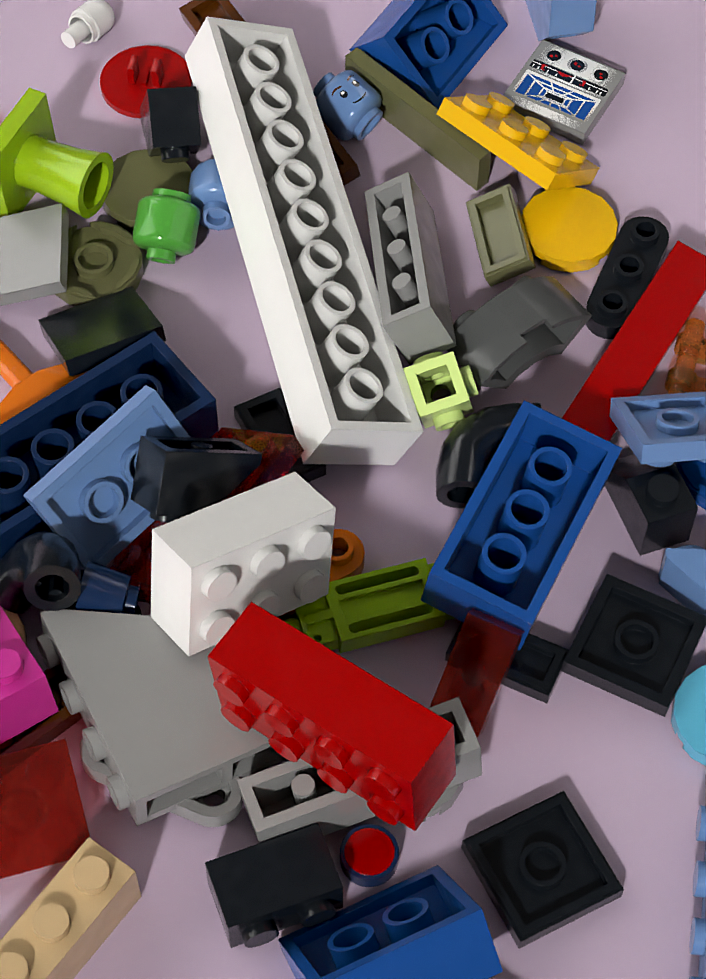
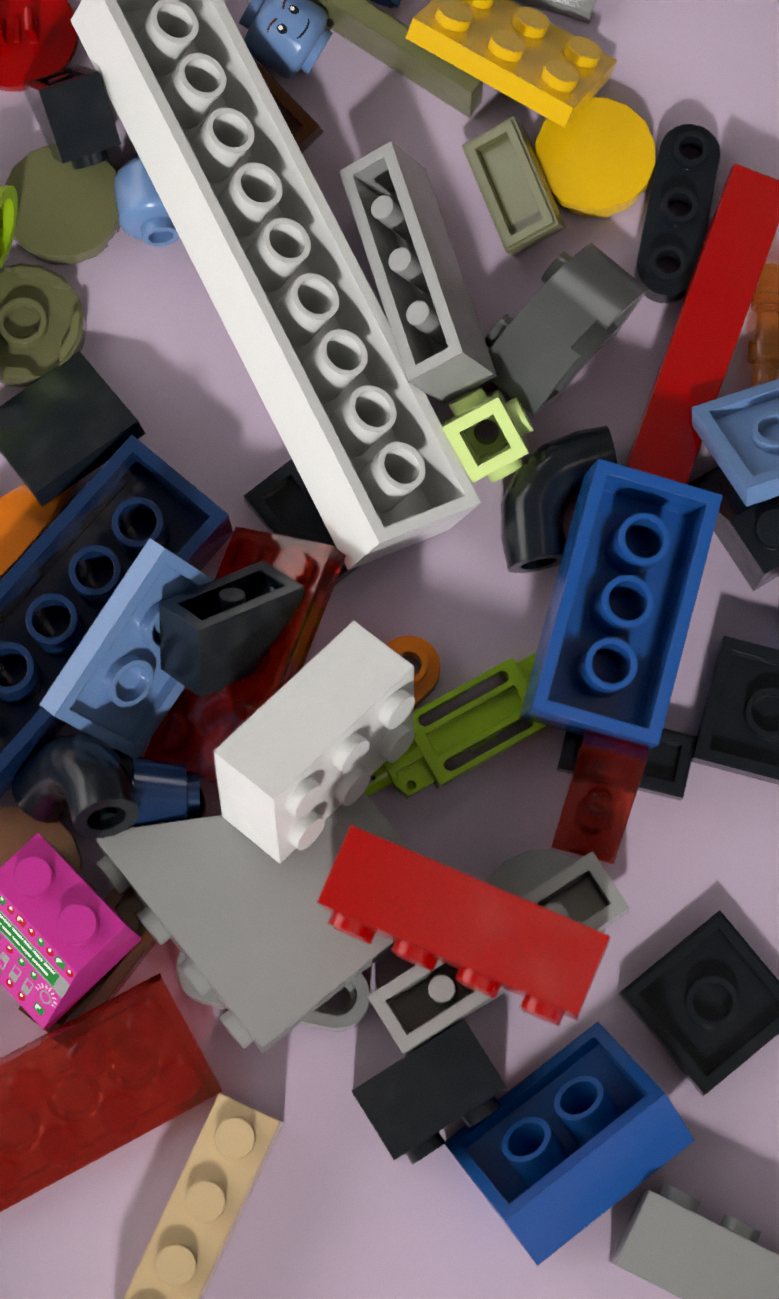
camera: 10 degrees left, 20 degrees up
(166, 225) = (103, 262): bright green head -> none
(369, 855) = (519, 1033): red tile -> none

